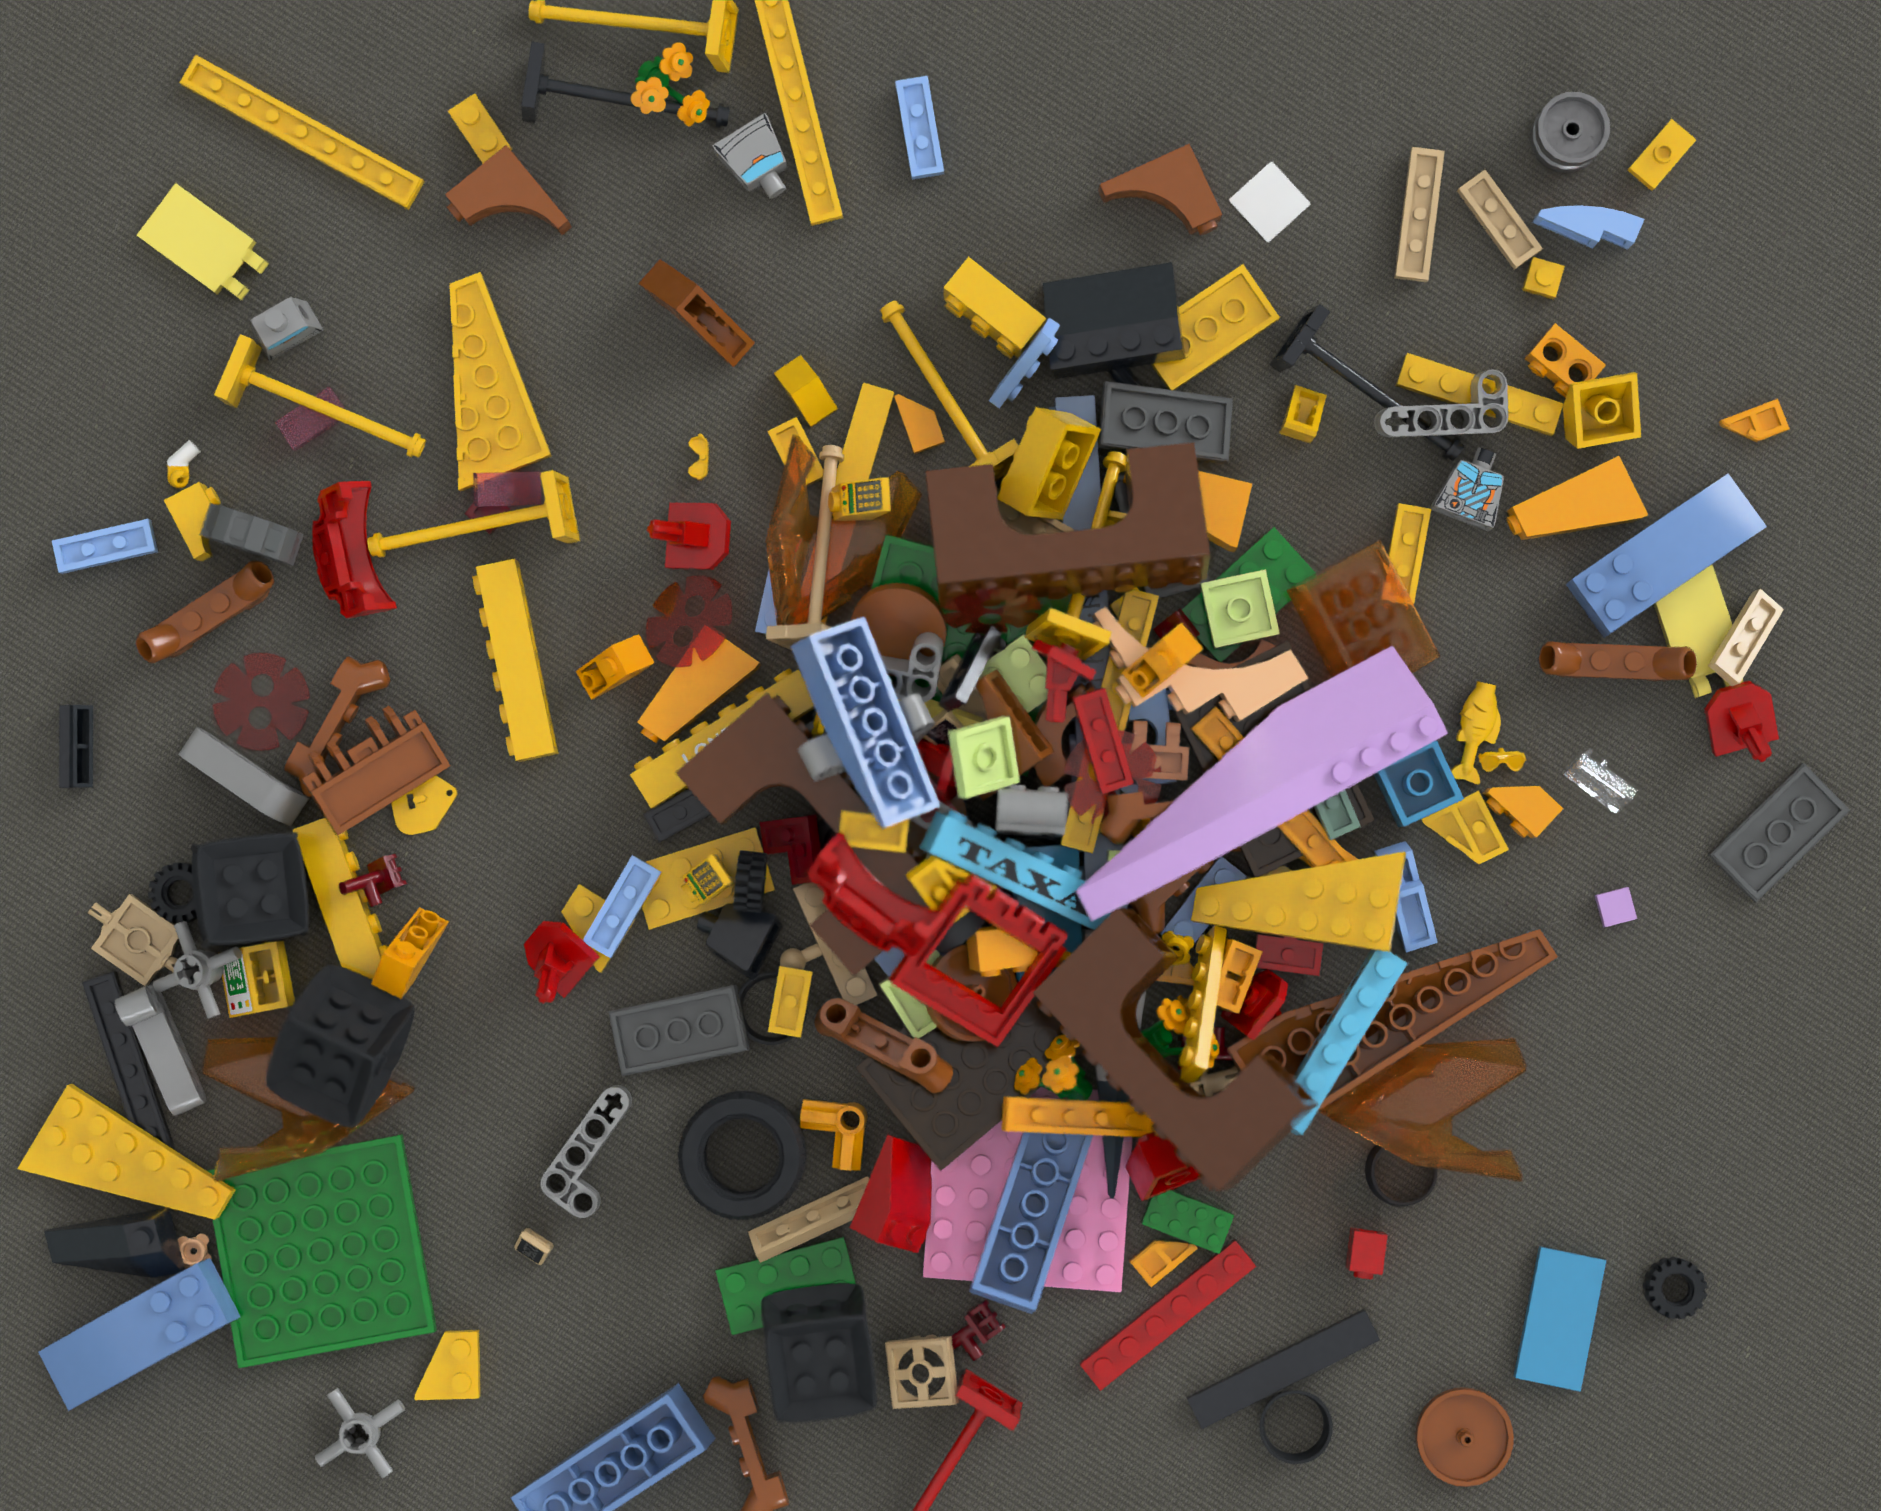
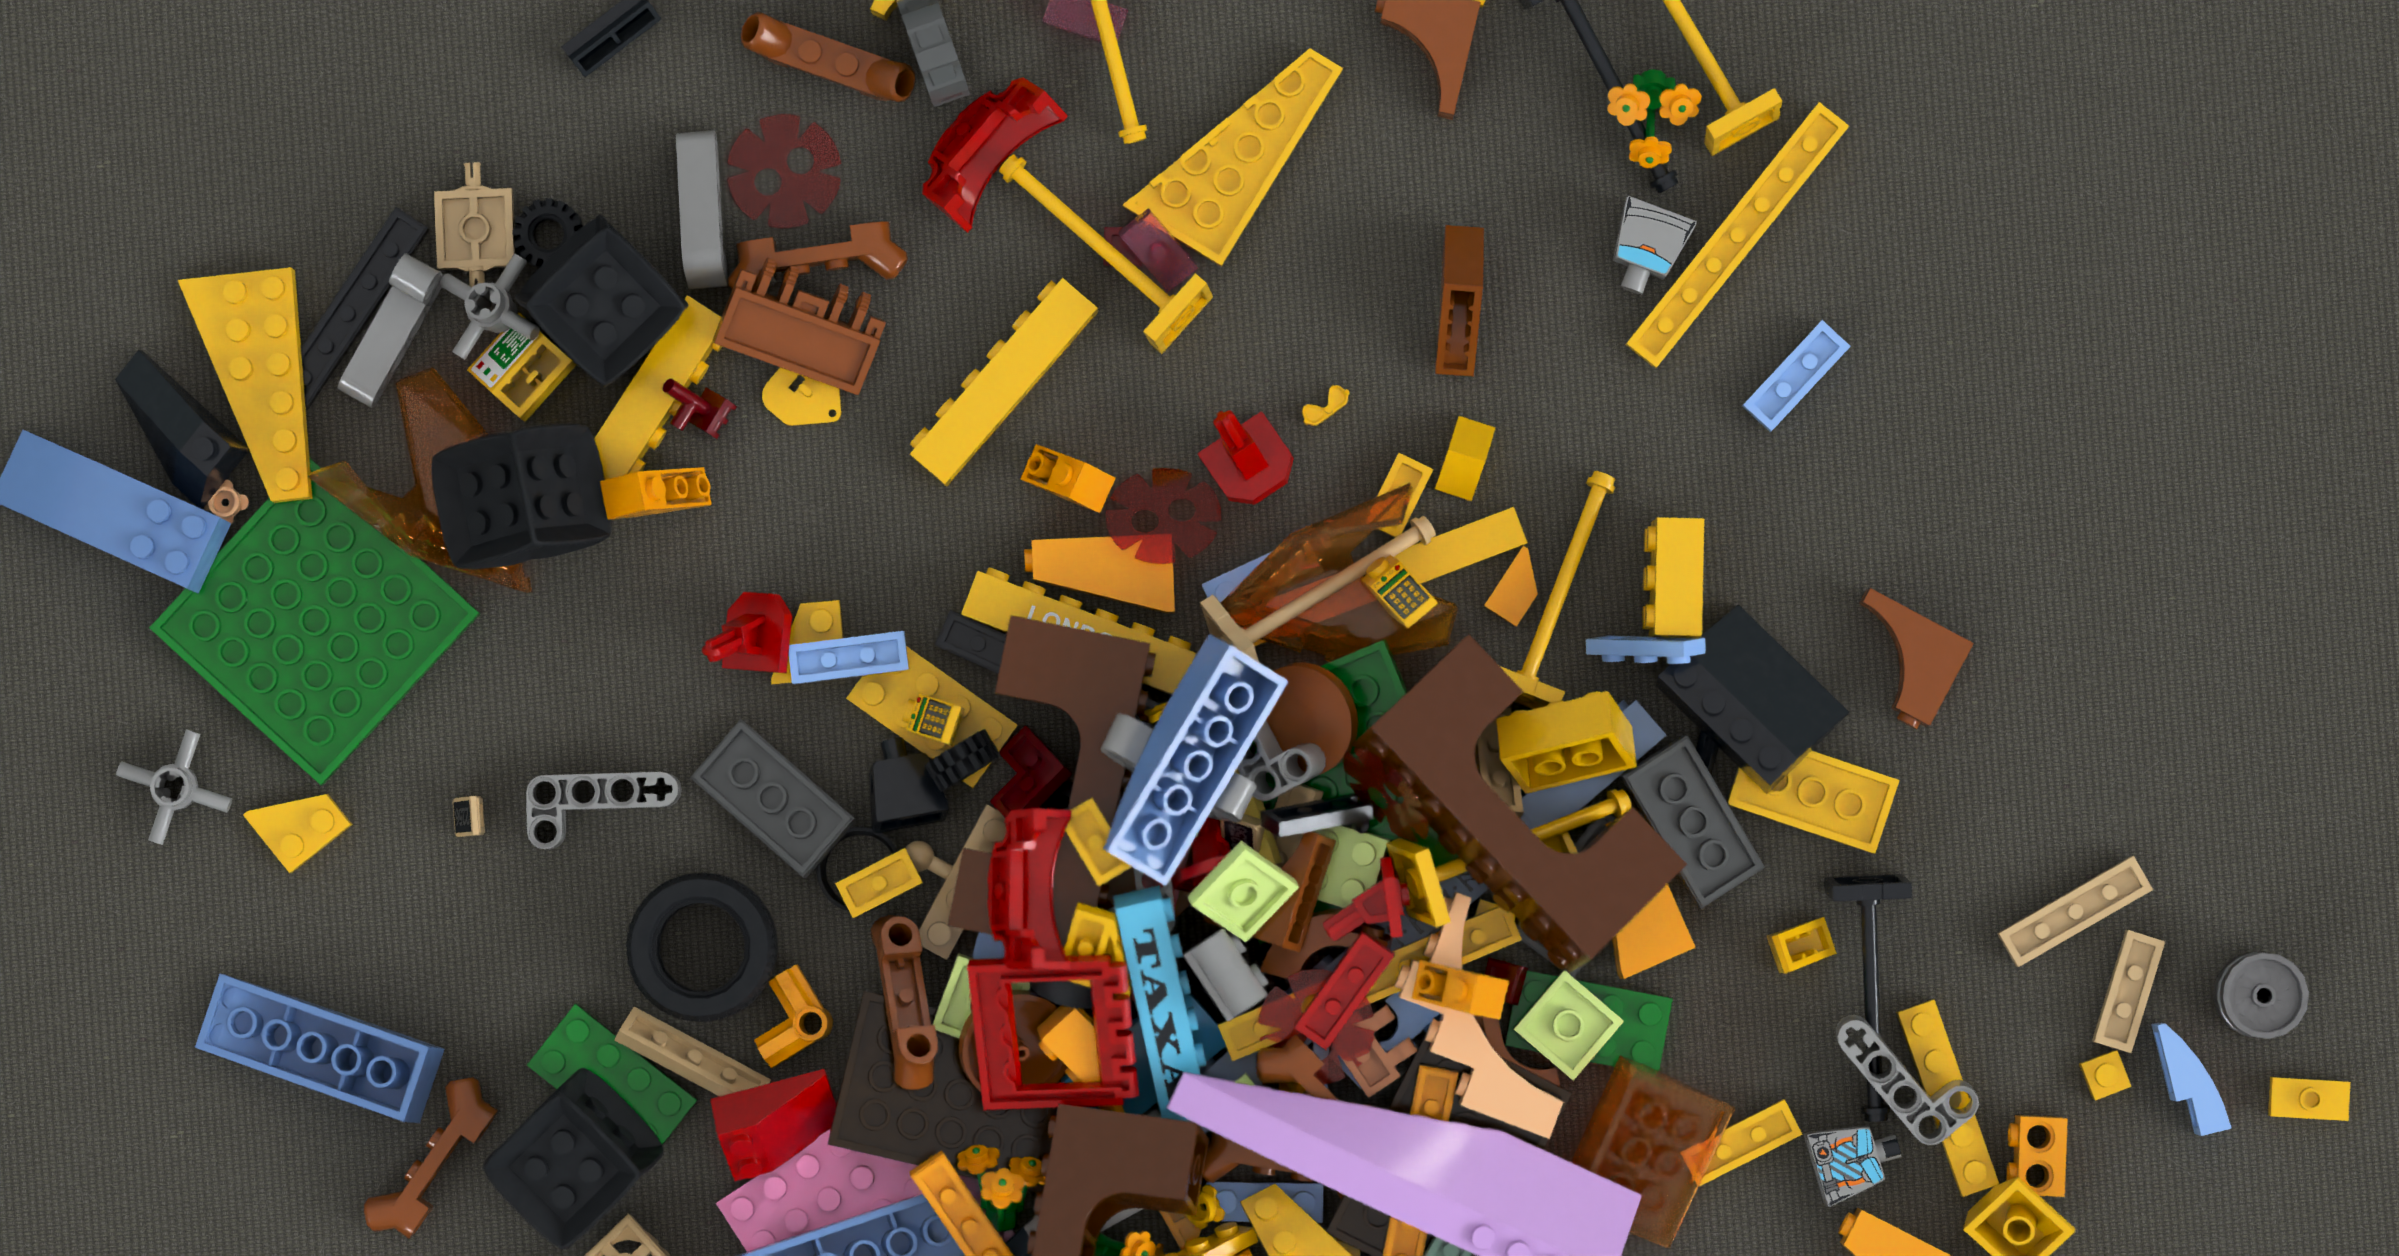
camera: 50 degrees right, 0 degrees up
(1269, 201) = (1980, 760): white sticker -> none

